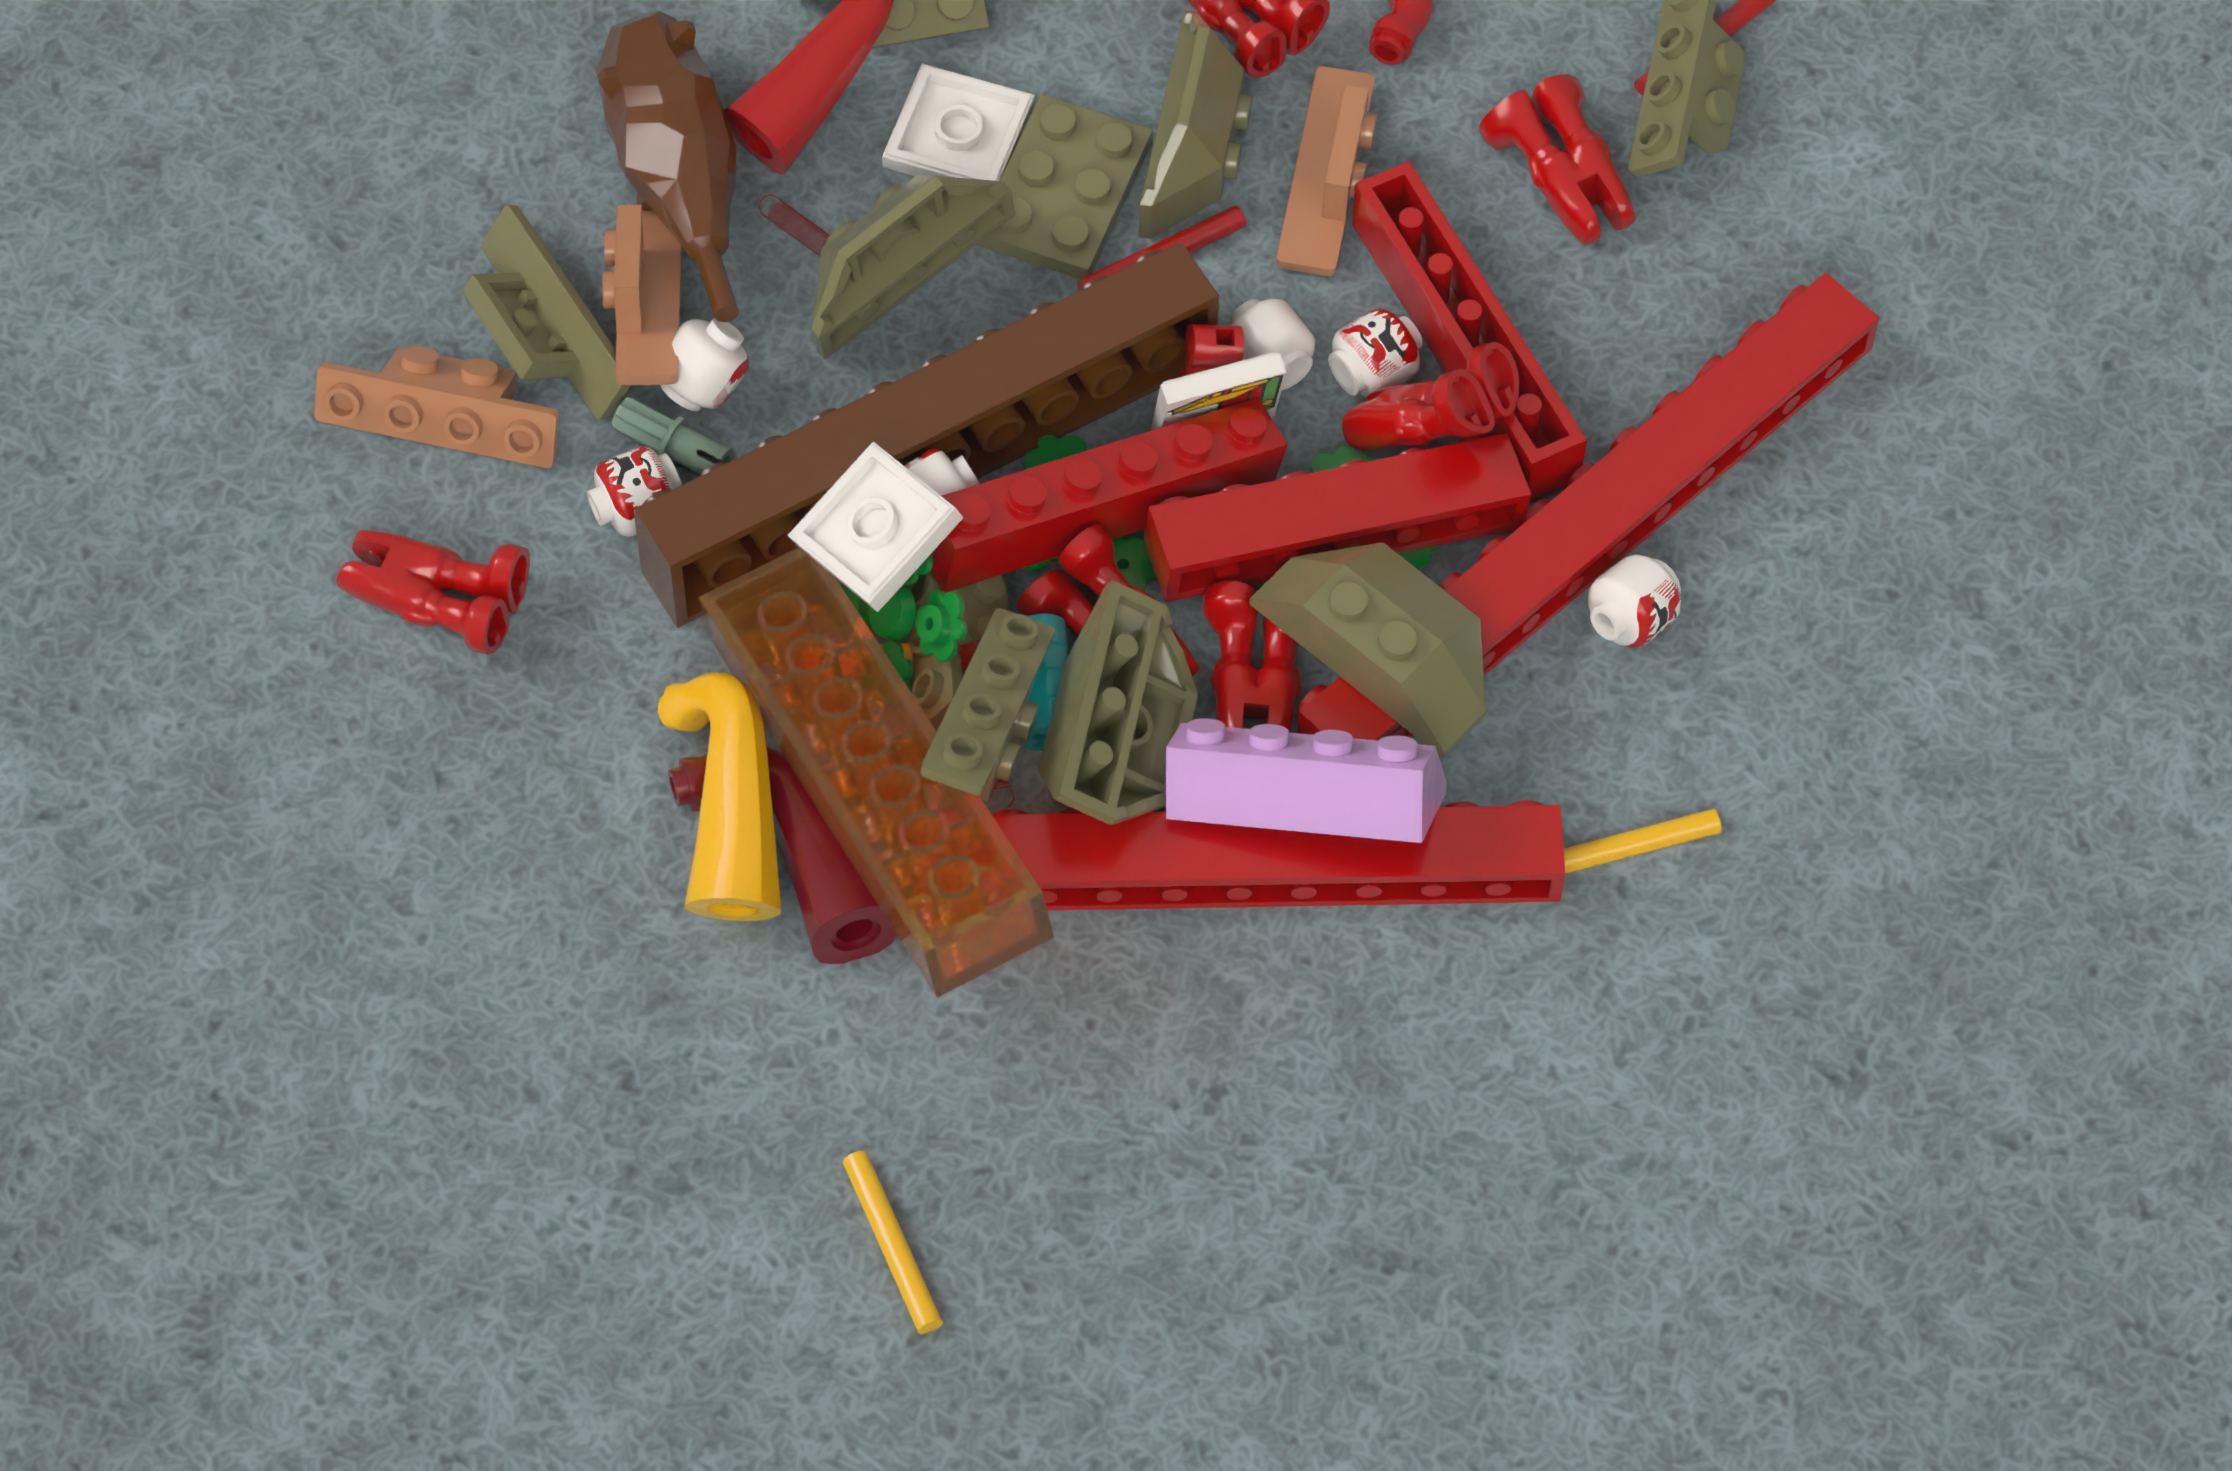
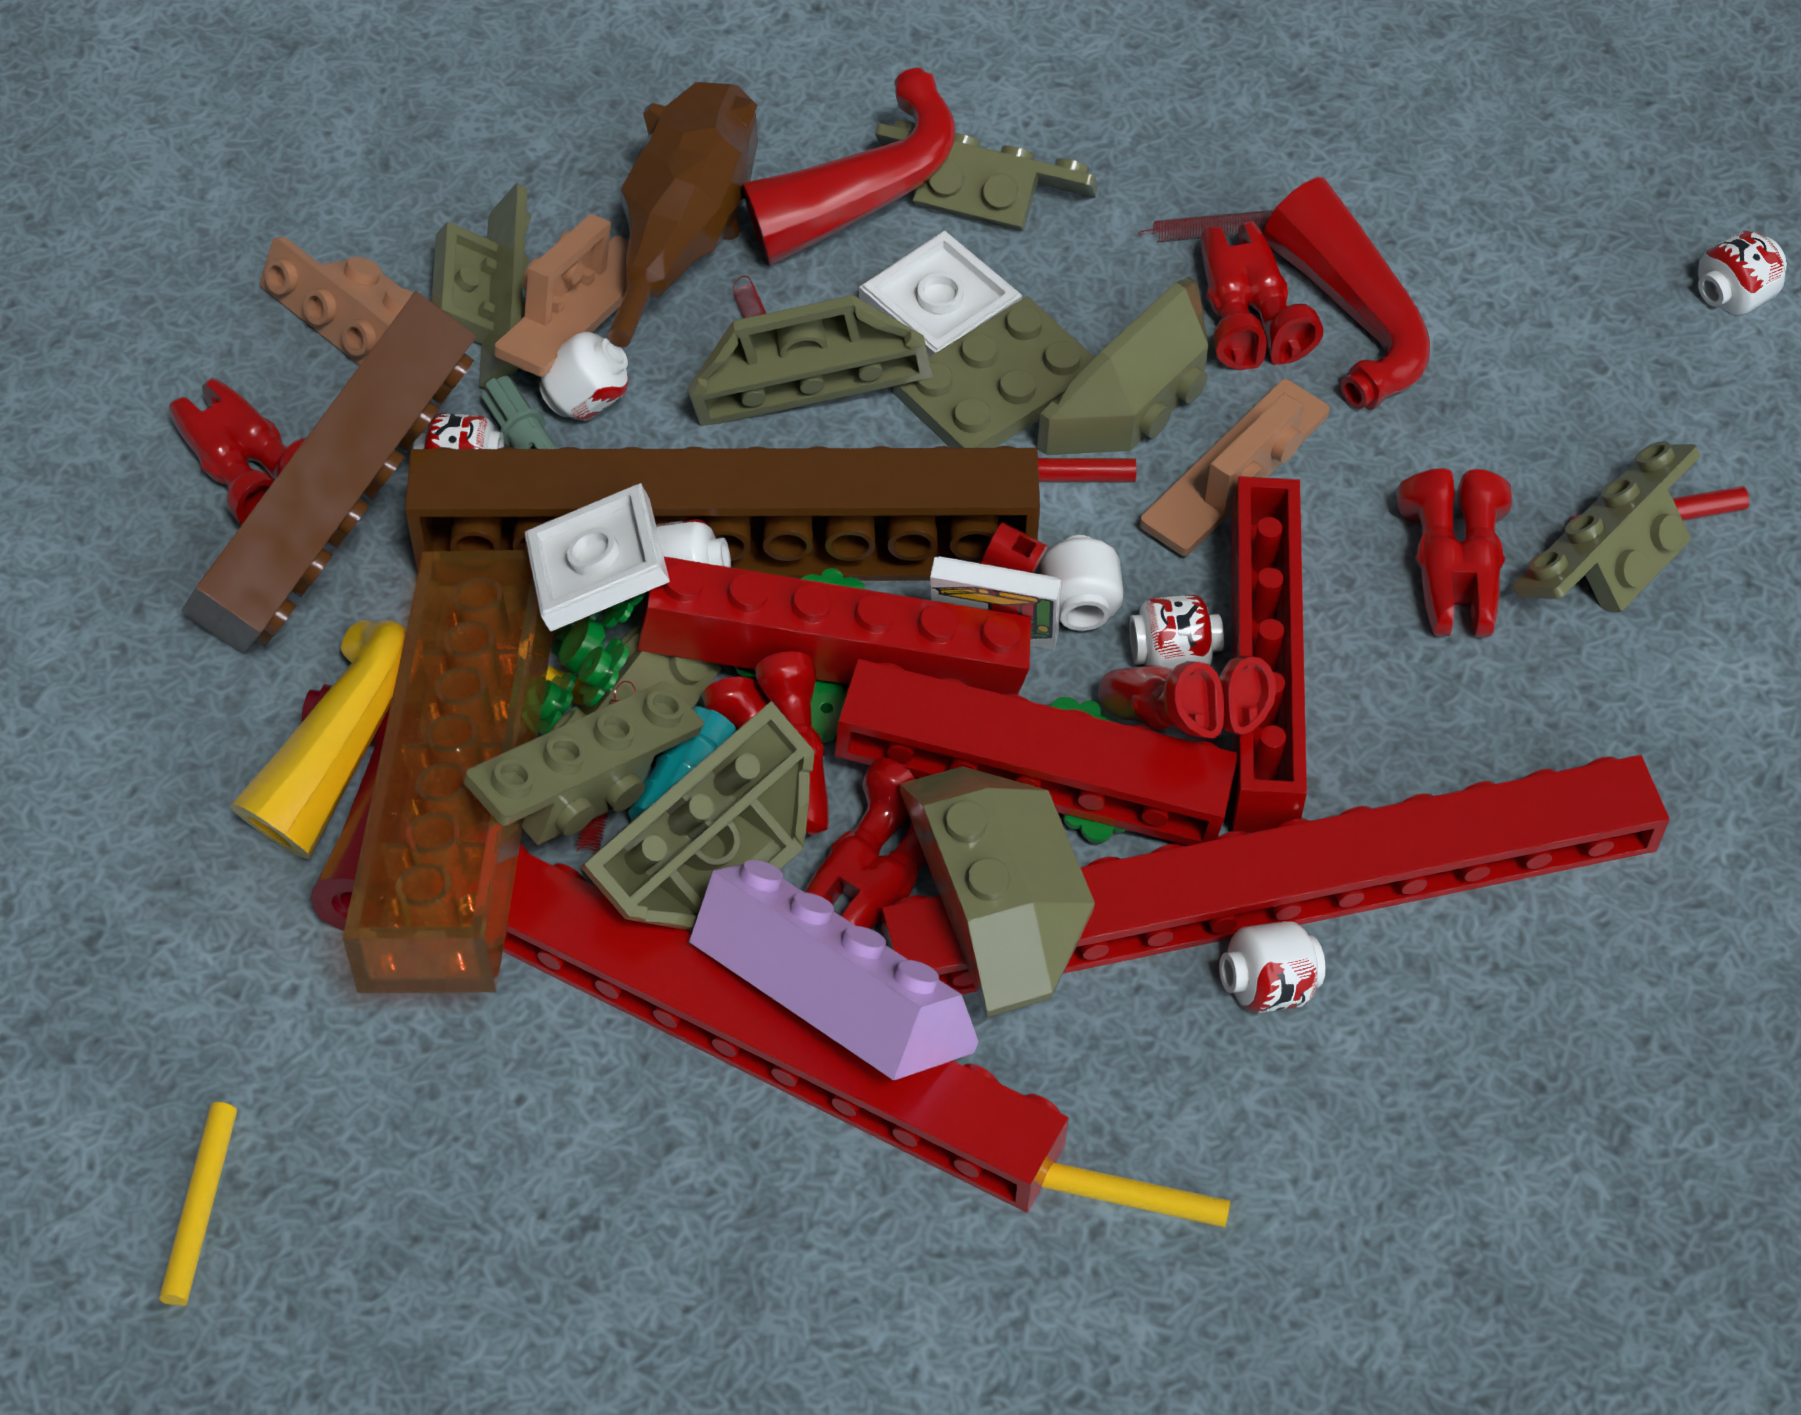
camera: 30 degrees right, 5 degrees down
(570, 567) = (321, 485): none -> reddish brown brick

